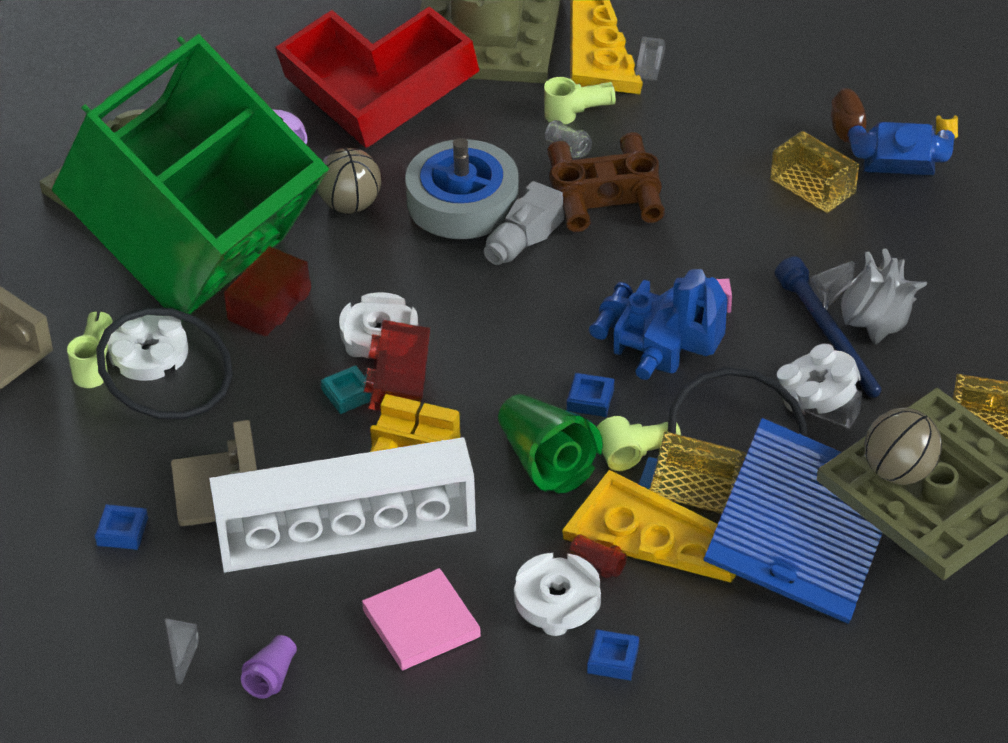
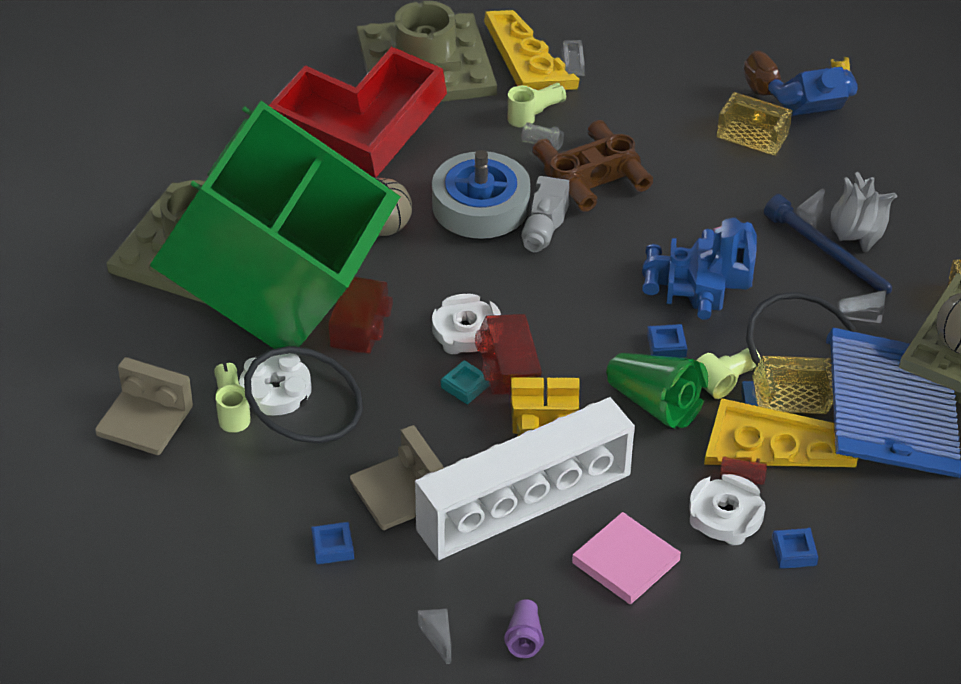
camera: 20 degrees left, 0 degrees up
(823, 364) = (842, 276): white plate -> none

